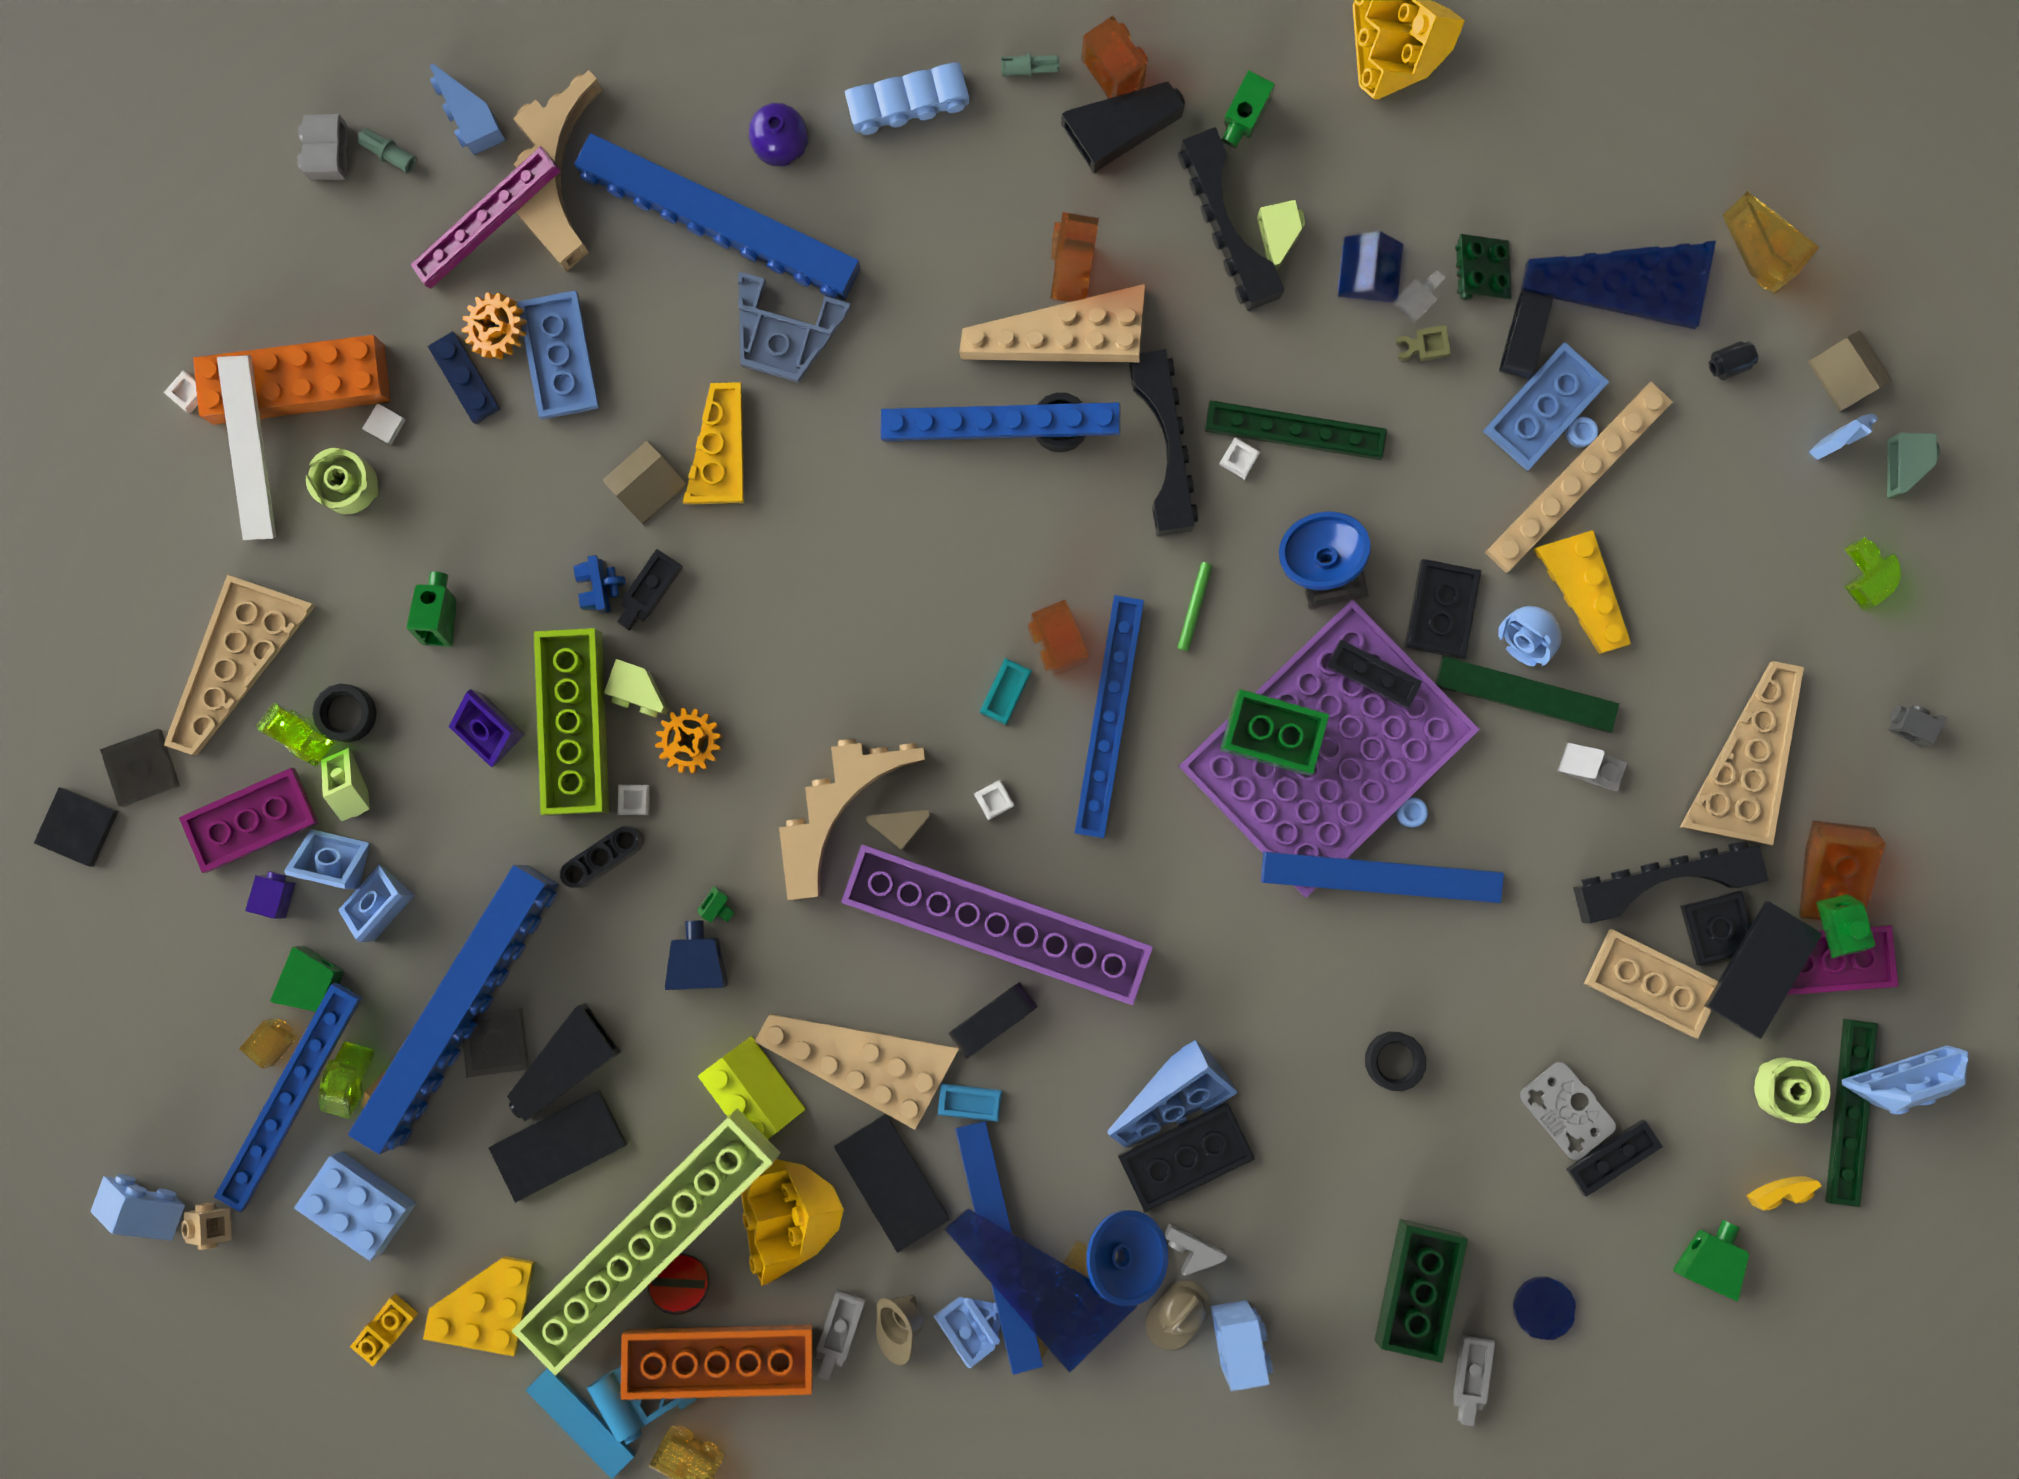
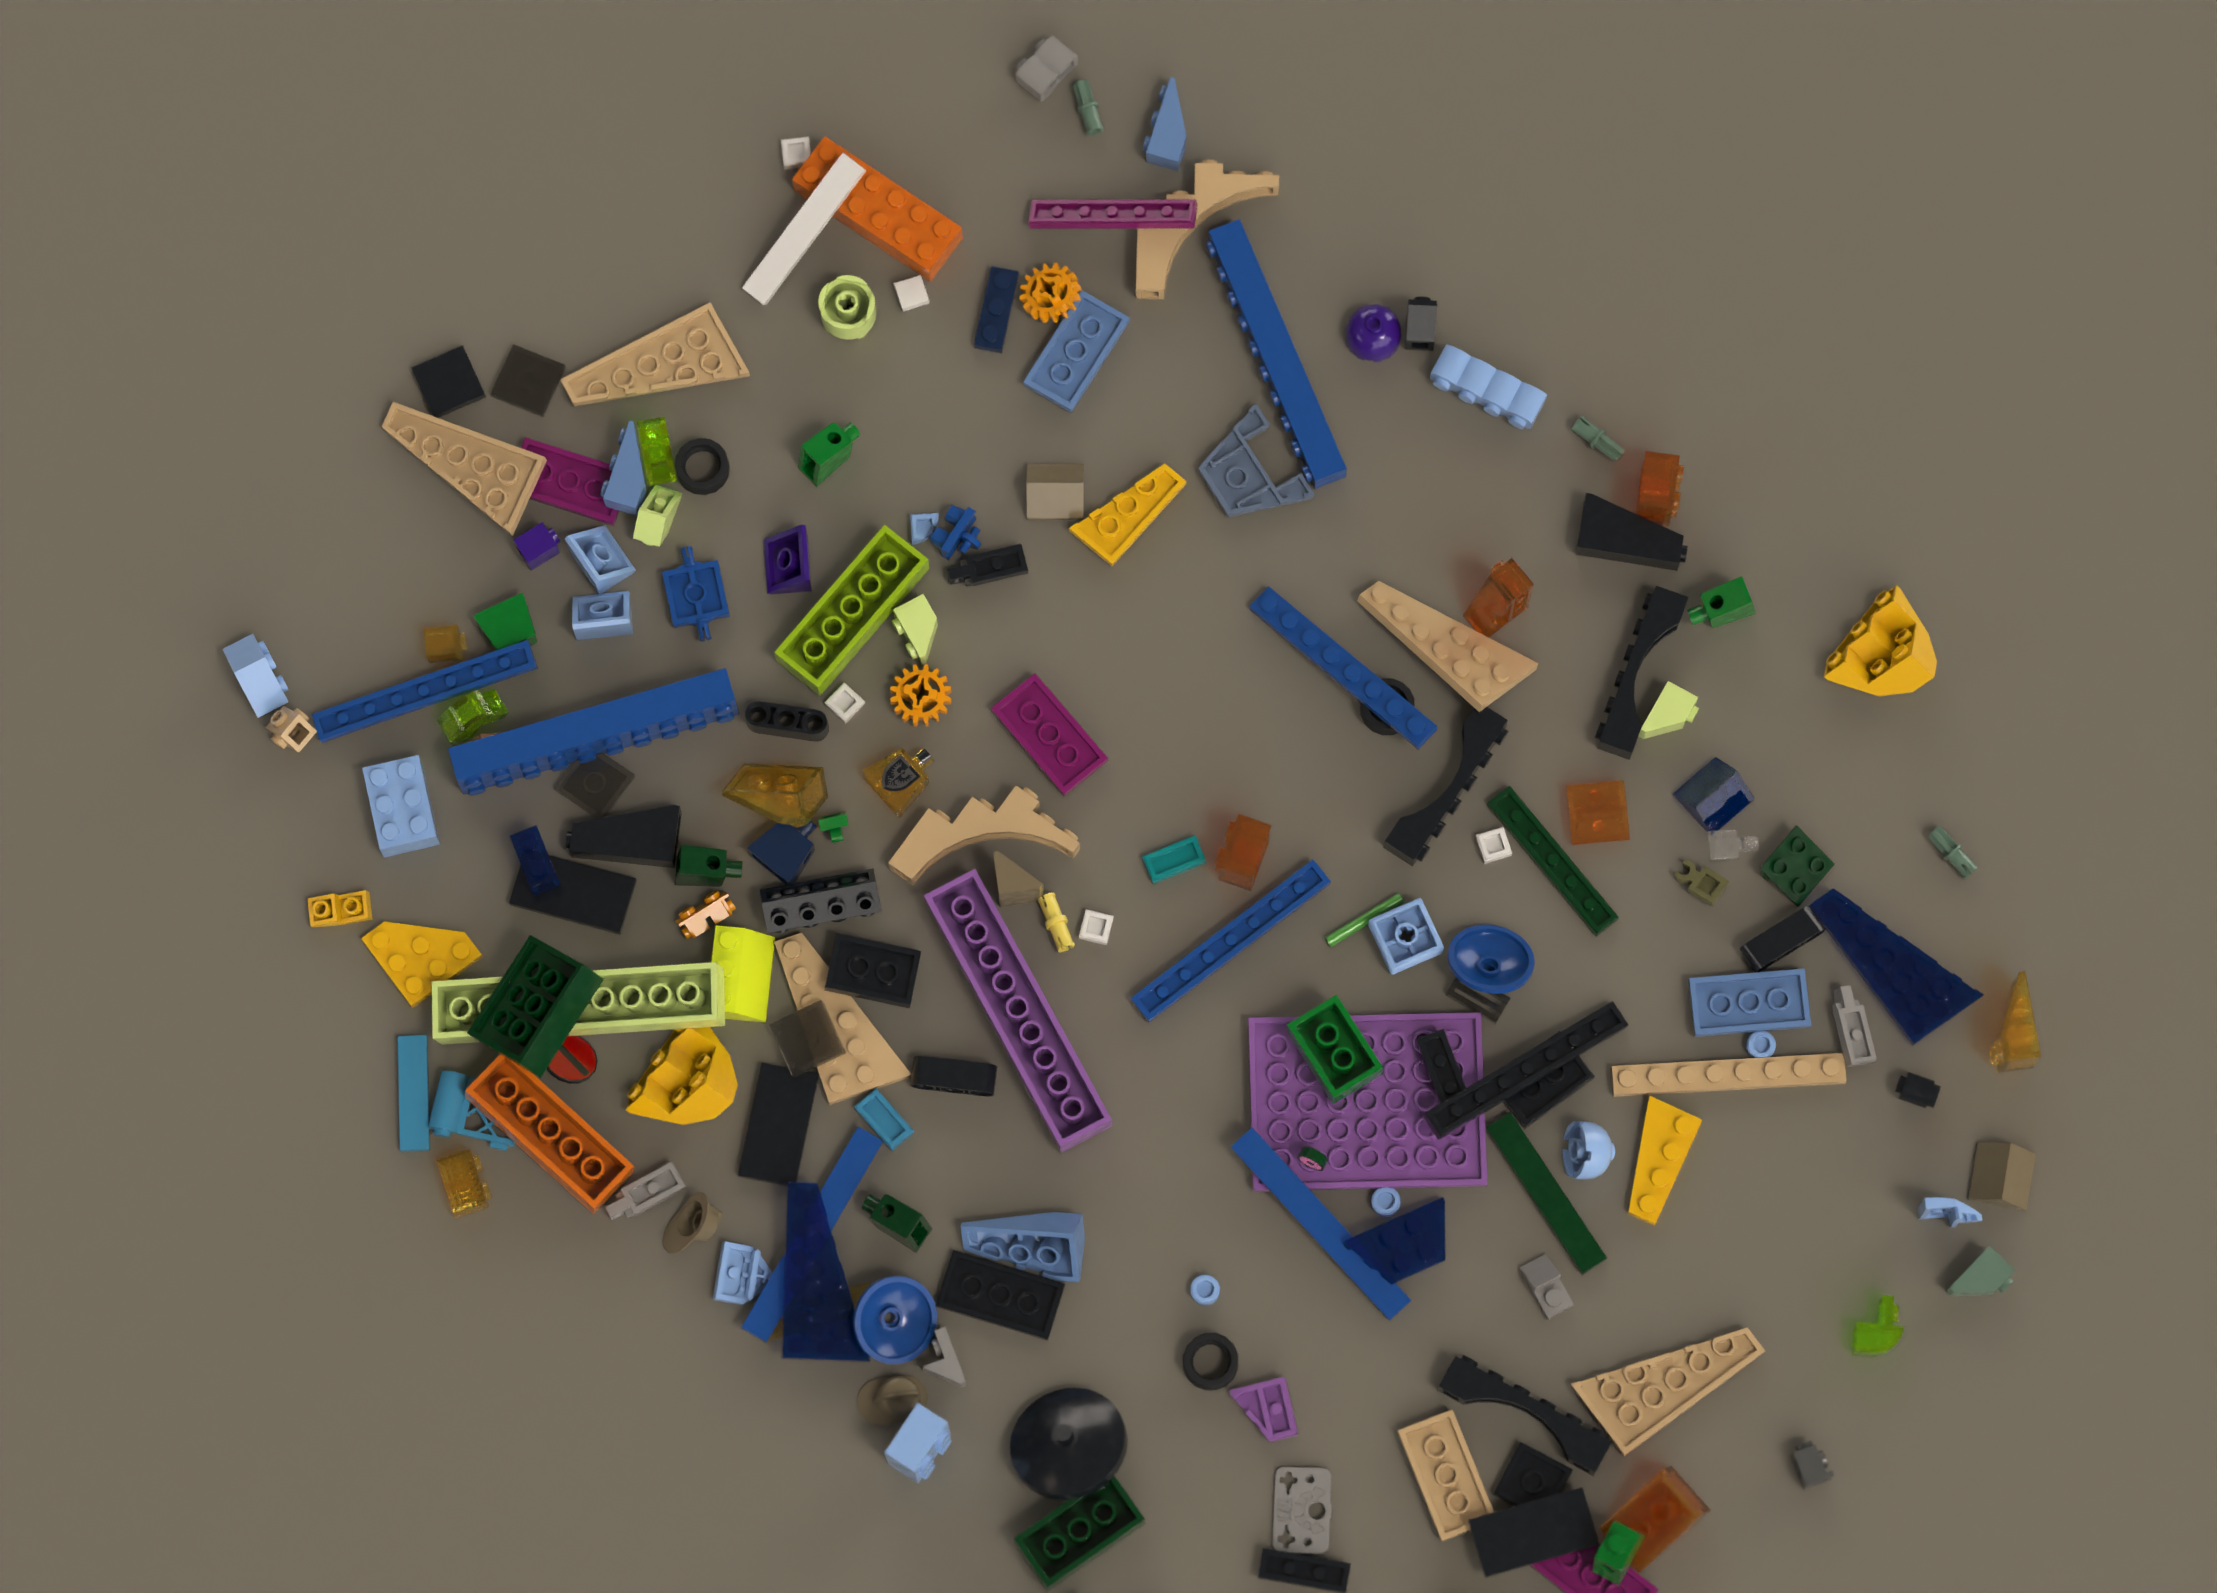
camera: 45 degrees right, 10 degrees down
(165, 875) = (481, 468): none -> tan wing
(293, 781) = (627, 482): none -> medium blue slope
(434, 820) = (695, 593): none -> blue plate
(503, 1154) = (535, 860): none -> clear blue brick
(566, 603) = (923, 526): none -> light blue tile
(615, 1284) = (535, 1006): none -> dark green slope
(632, 1040) = (693, 867): none -> dark green torso
(648, 921) = (779, 791): none -> clear yellow slope
(679, 1057) = (713, 906): none -> light orange hinge
(733, 822) = (899, 778): none -> clear yellow torso
(761, 978) = (820, 901): none -> black brick
(810, 92) = (1420, 324): none -> black slope
(818, 680) = (1049, 734): none -> magenta plate
(852, 1096) = (807, 1038): none -> clear smoke tile
(853, 995) = (872, 970): none -> black plate
(960, 825) = (1056, 922): none -> light yellow pin
(1068, 1175) = (898, 1220): none -> dark green torso
(1259, 584) = (1412, 919): none -> light blue brick
(1296, 360) = (1597, 812): none -> clear orange slope
(1333, 833) = (1312, 1158): none -> dark green tile
(1338, 1008) = (1205, 1290): none -> light blue tile
(1351, 1230) = (1068, 1443): none -> black dish
(1430, 616) = (1525, 1070): none -> black tile
(1460, 833) = (1404, 1243): none -> clear blue wing
(1472, 1056) = (1269, 1408): none -> medium lavender wing
(1590, 150) = (1952, 851): none -> sand green axle
(1640, 355) = (1853, 1028): none -> light grey hinge

